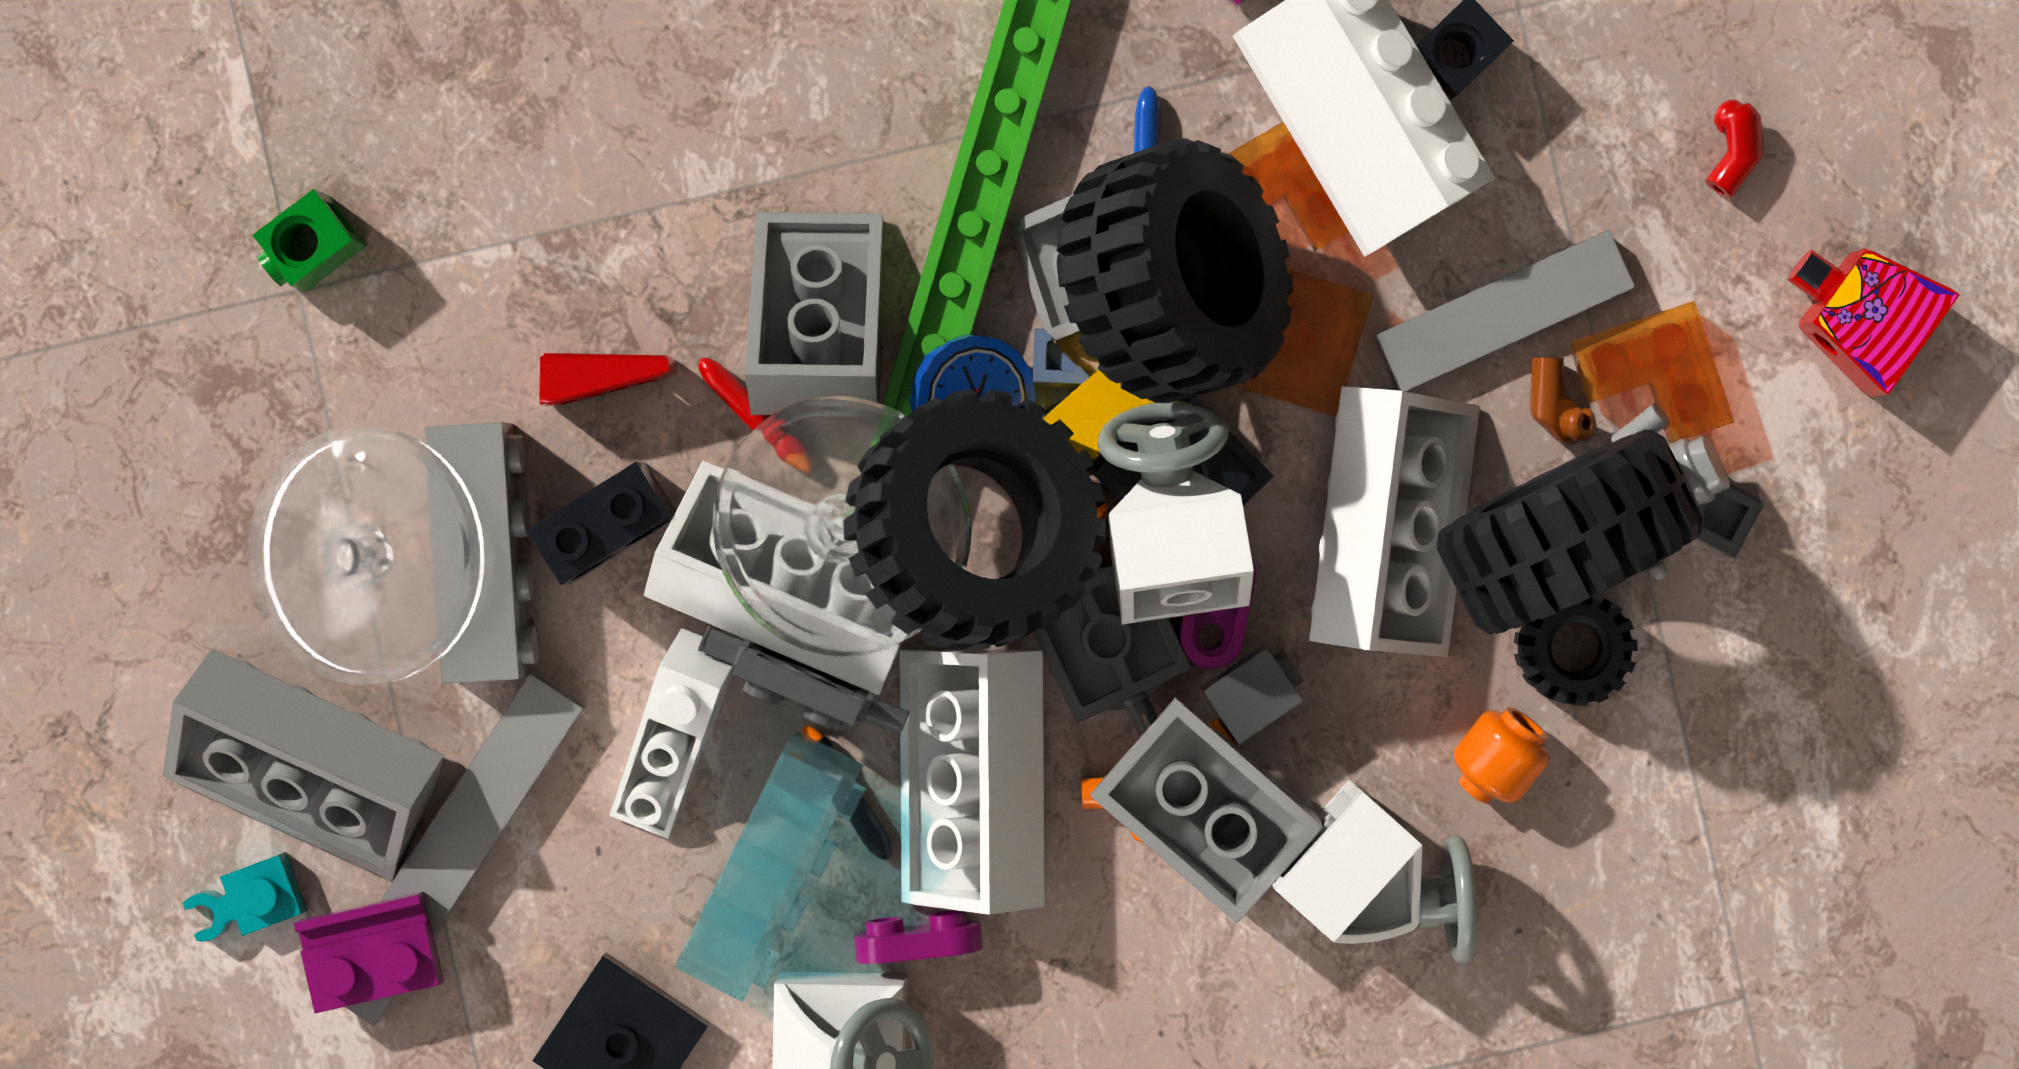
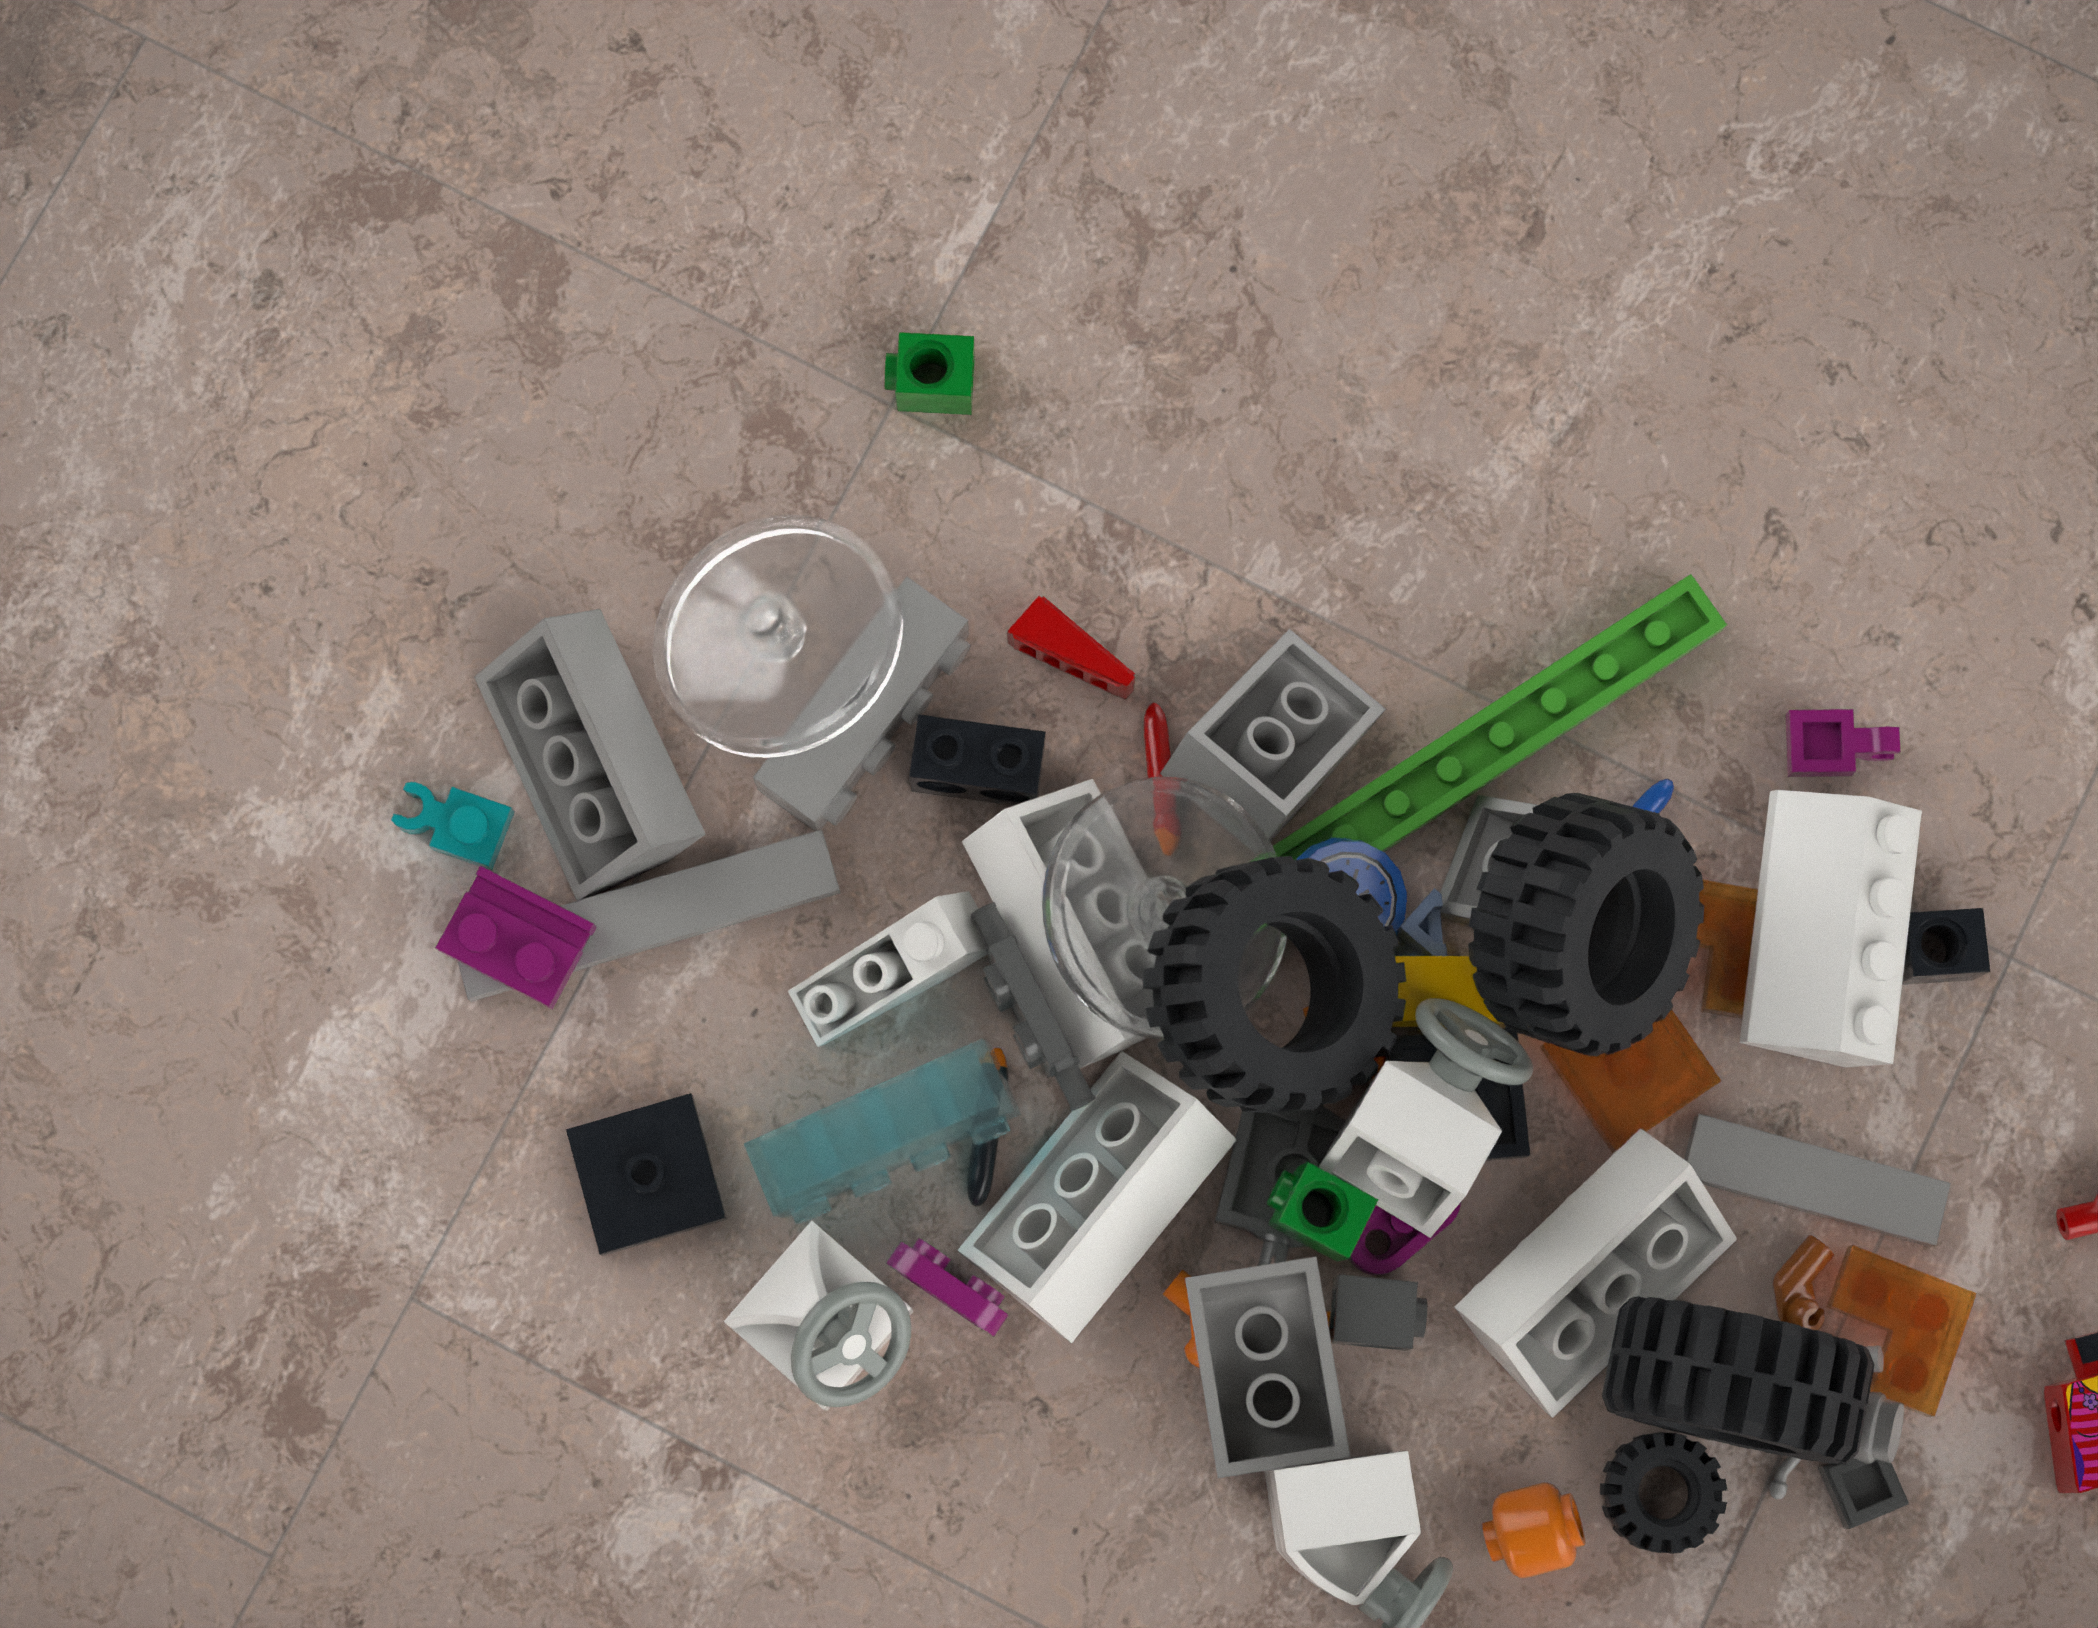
camera: 35 degrees right, 10 degrees down
(1178, 652) = (1348, 1218): none -> green brick

